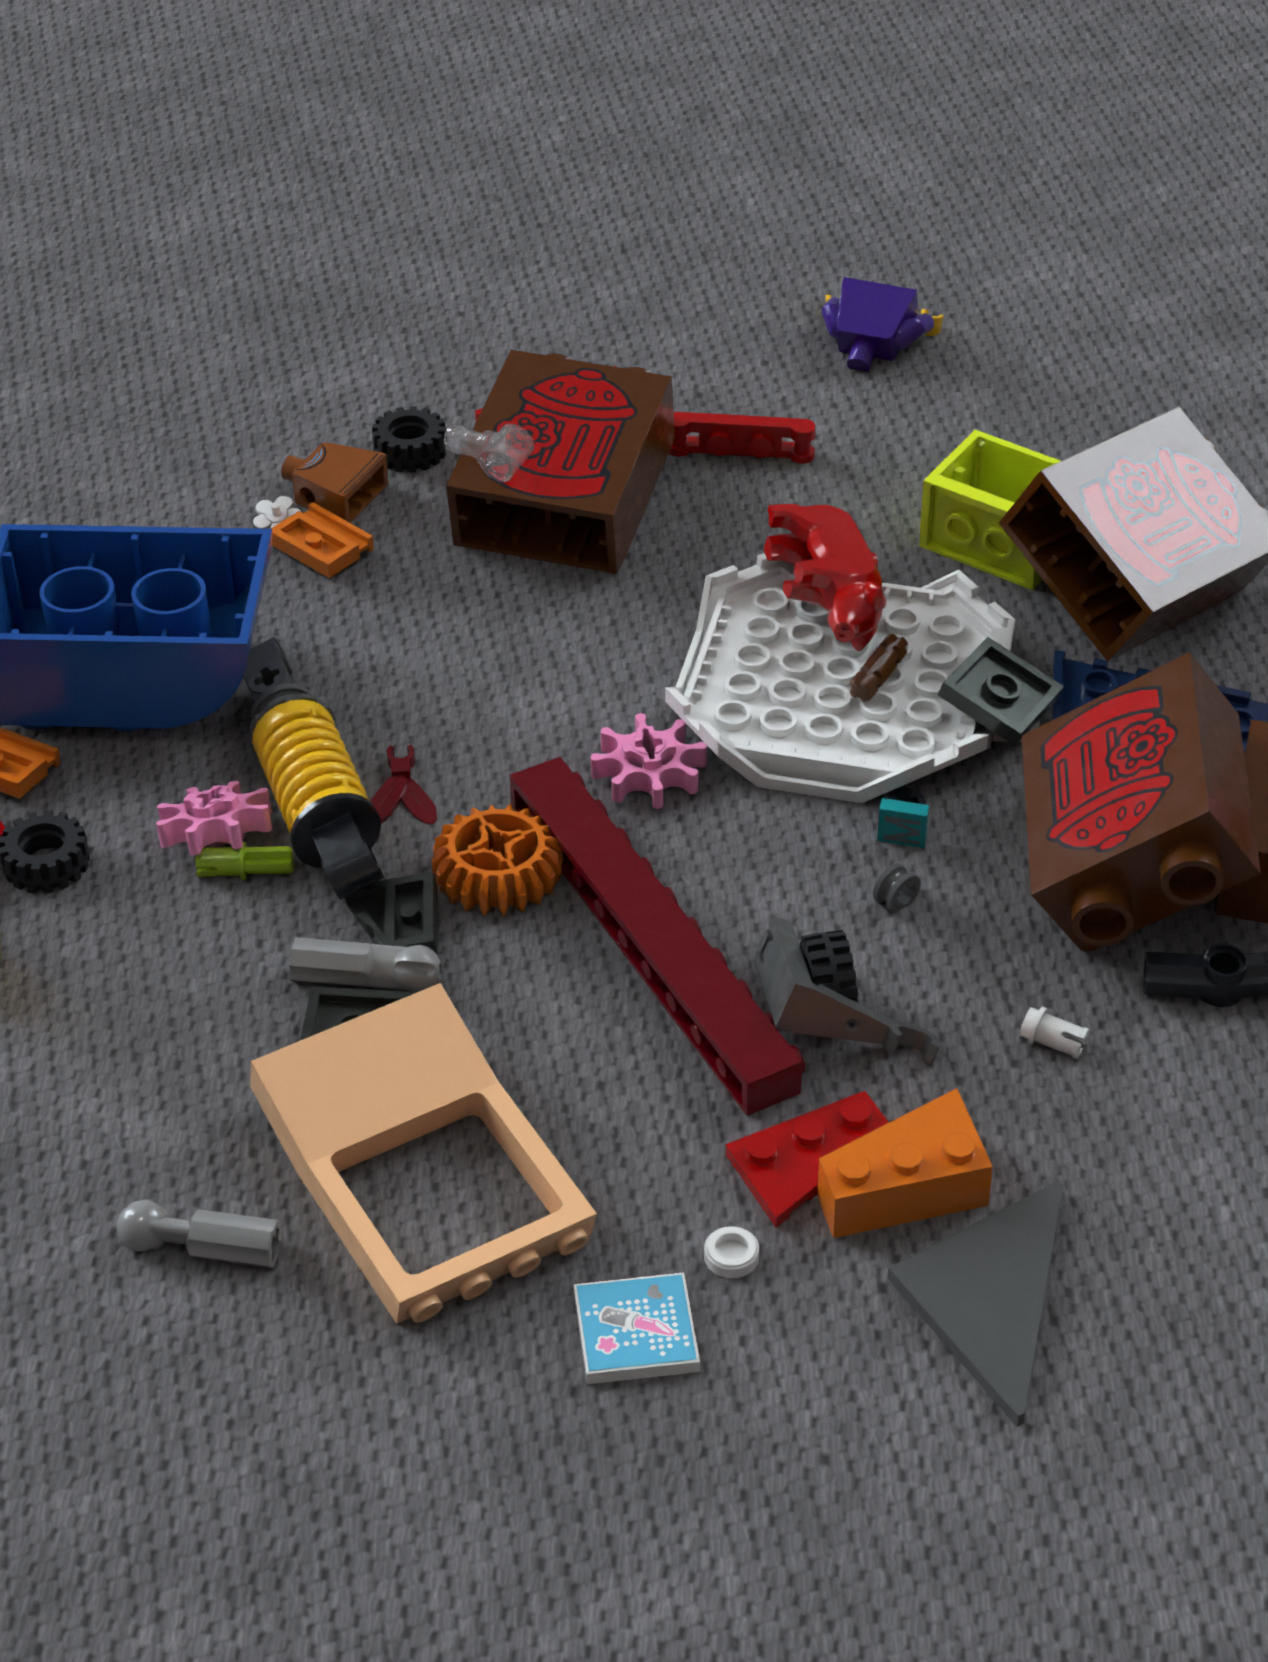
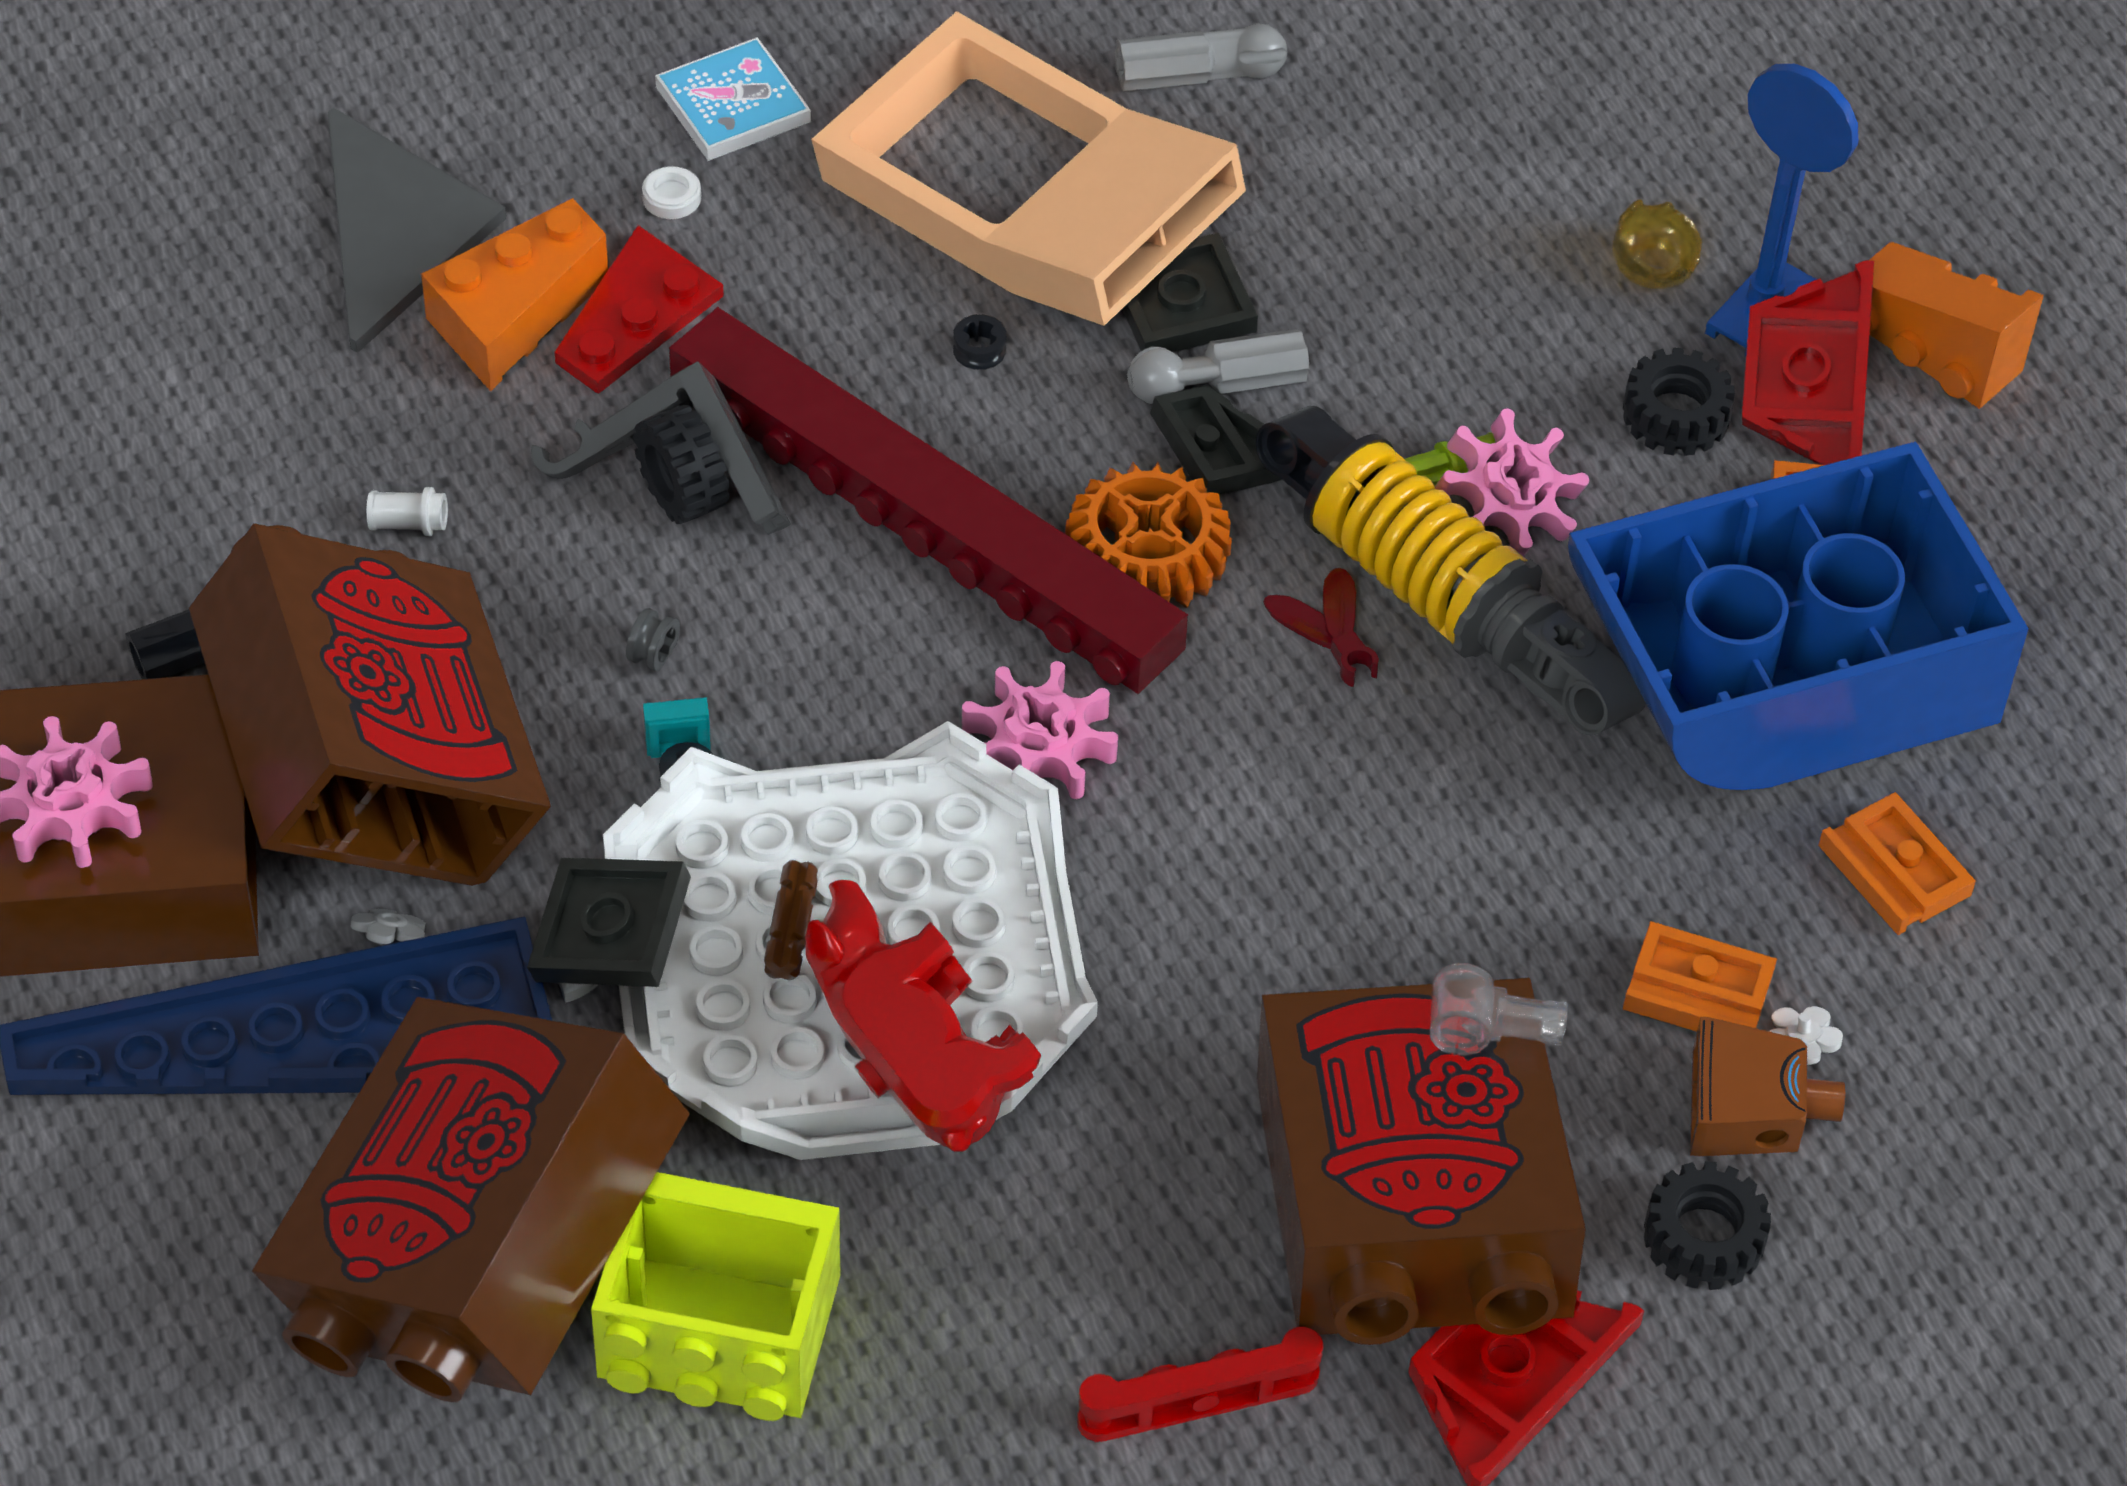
camera: 155 degrees right, 10 degrees up
(539, 1033) = (974, 327): none -> black bush

